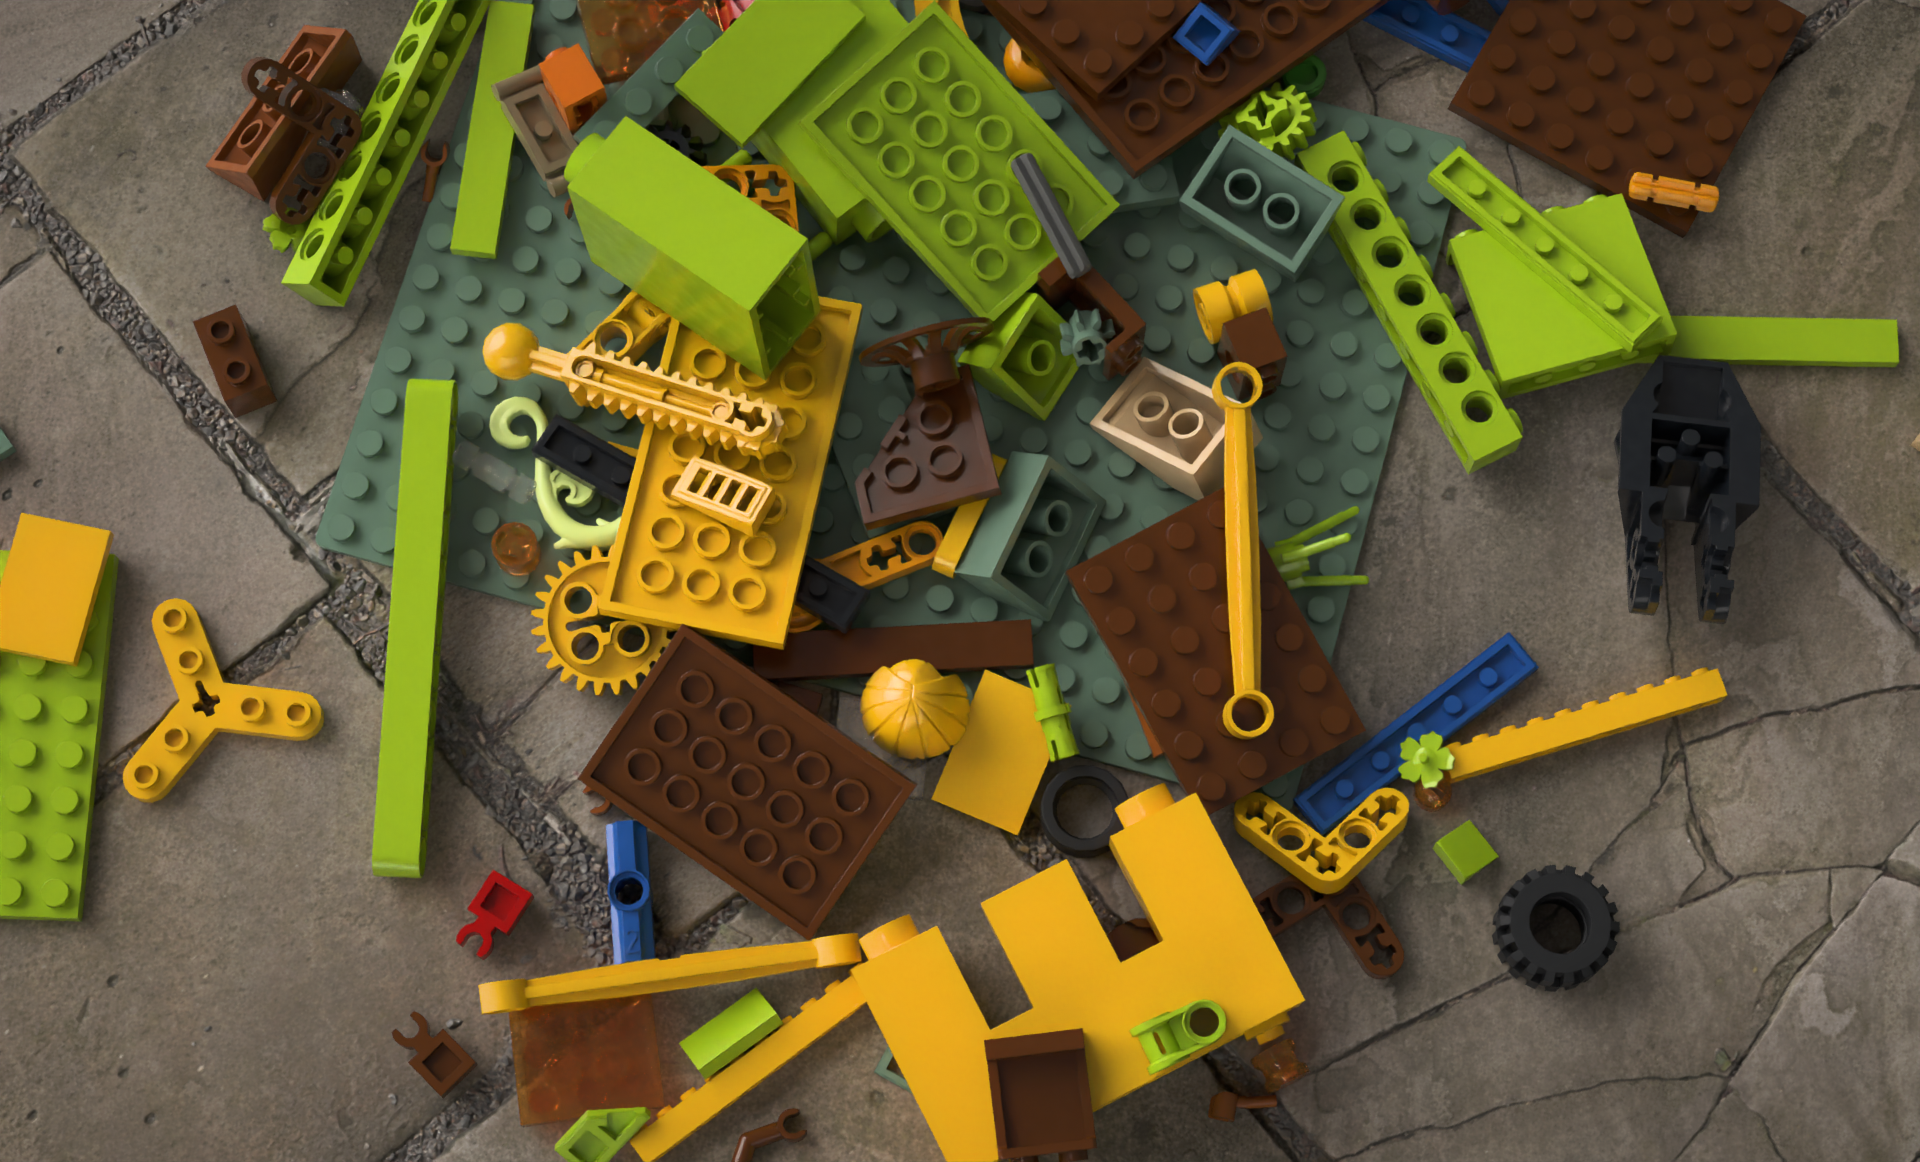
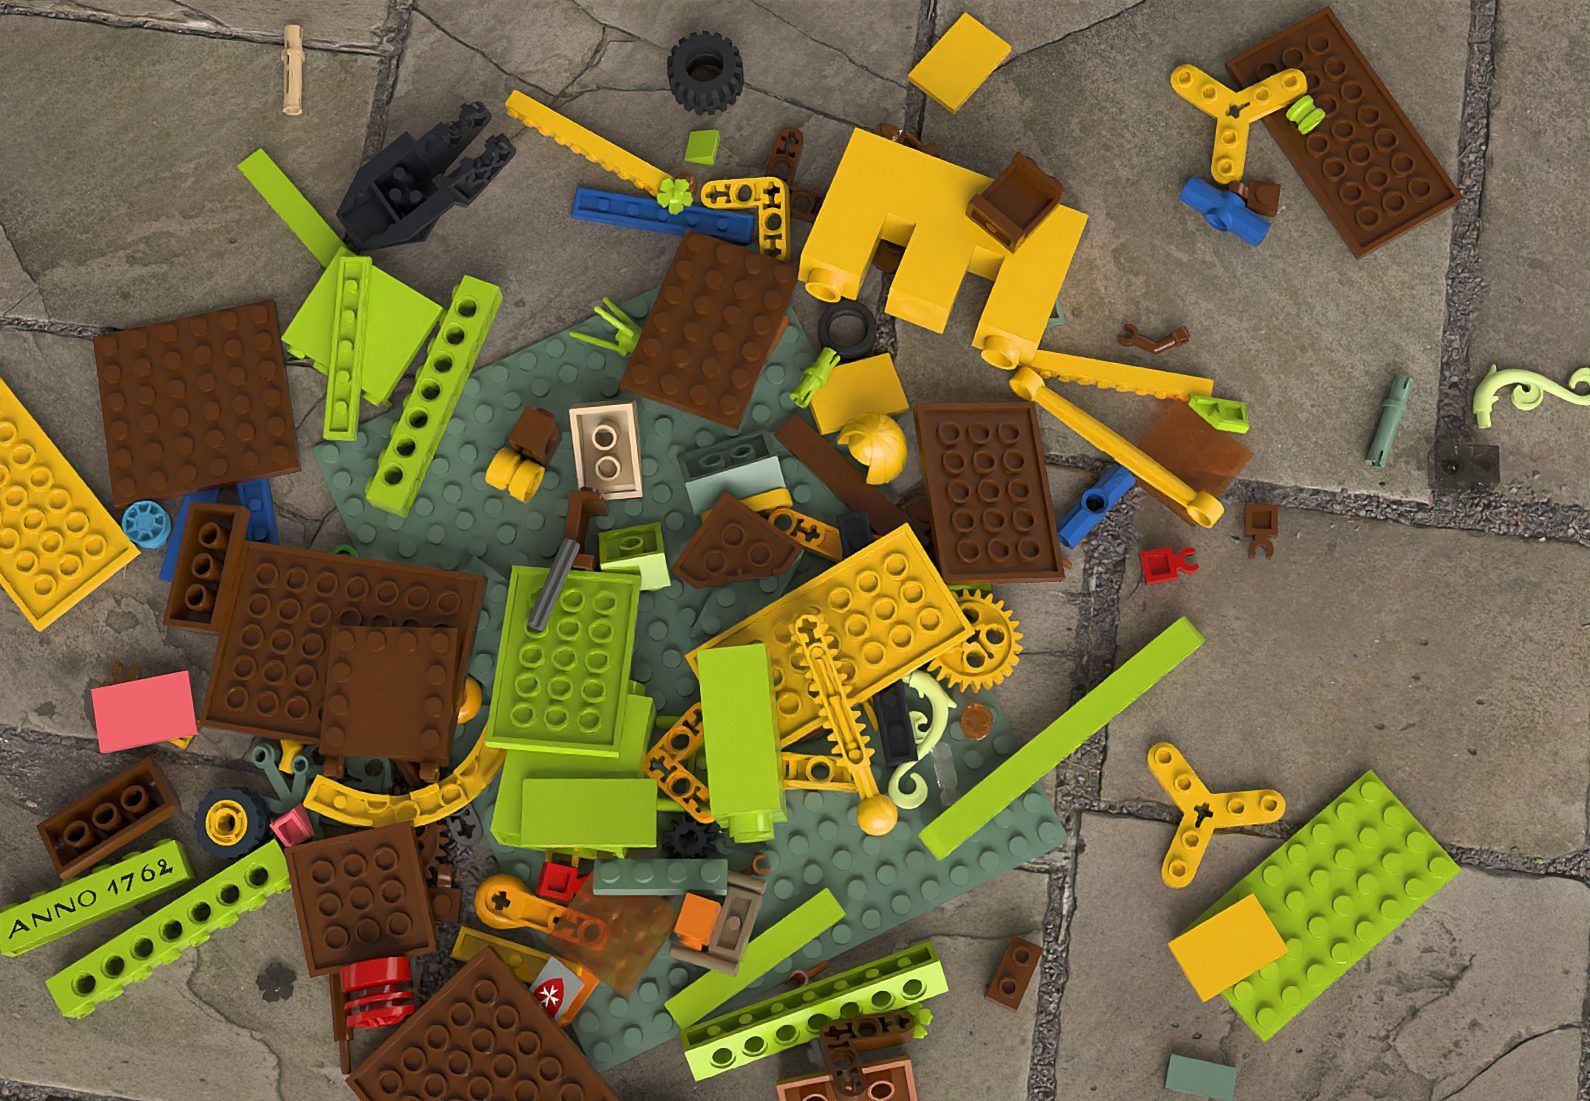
camera: 125 degrees left, 0 degrees up
(730, 1033) = (1113, 399): lime tile -> none
(747, 521) = (849, 594): yellow slope -> none
(935, 365) = (690, 579): reddish brown wheel -> none
(1086, 337) = (599, 525): sand green gear -> none
(1176, 1035) = (928, 162): lime piece -> none
(1206, 33) = (369, 609): blue slope -> none
(1242, 550) = (650, 344): yellow piece -> none
(1262, 203) = (445, 502): sand green slope -> none
(1275, 119) = (385, 534): lime gear -> none
(1673, 192) = (257, 315): light orange axle -> none

